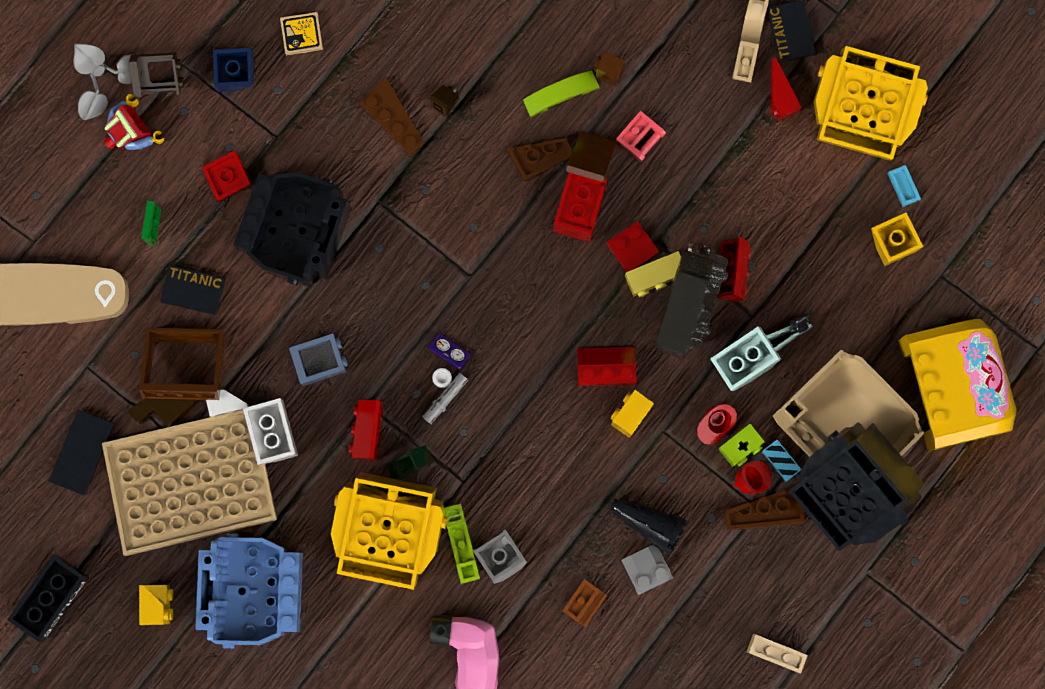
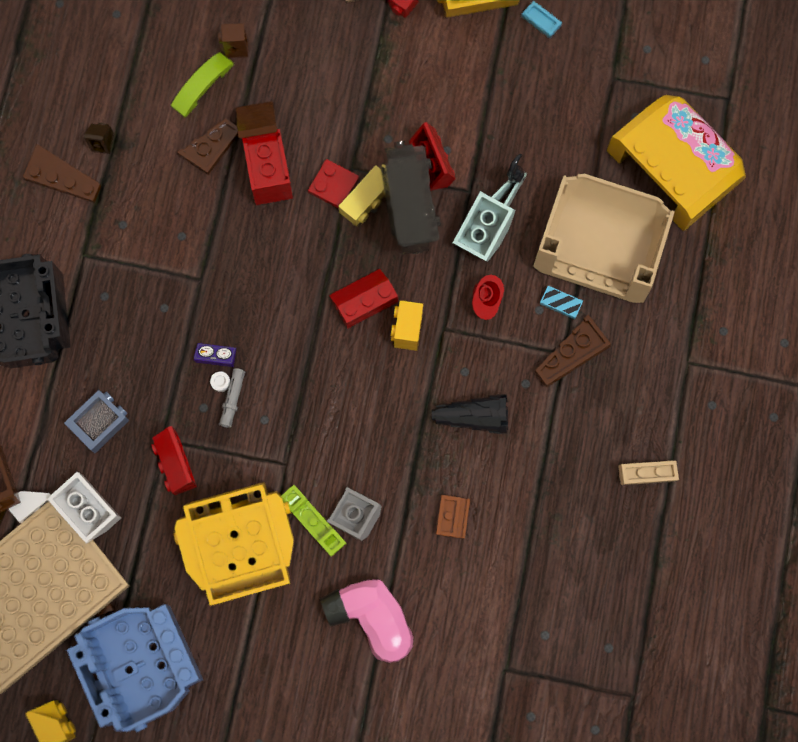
camera: 30 degrees left, 5 degrees down
(410, 462) = (229, 471): clear green slope -> none
(636, 131) = (285, 84): coral plate -> none
(647, 569) = (493, 457): light grey slope -> none
(730, 448) = (521, 295): lime brick -> none
(753, 478) = (545, 328): red piece -> none
(862, 460) = (615, 278): black piece -> none
(896, 239) = (559, 64): yellow slope -> none

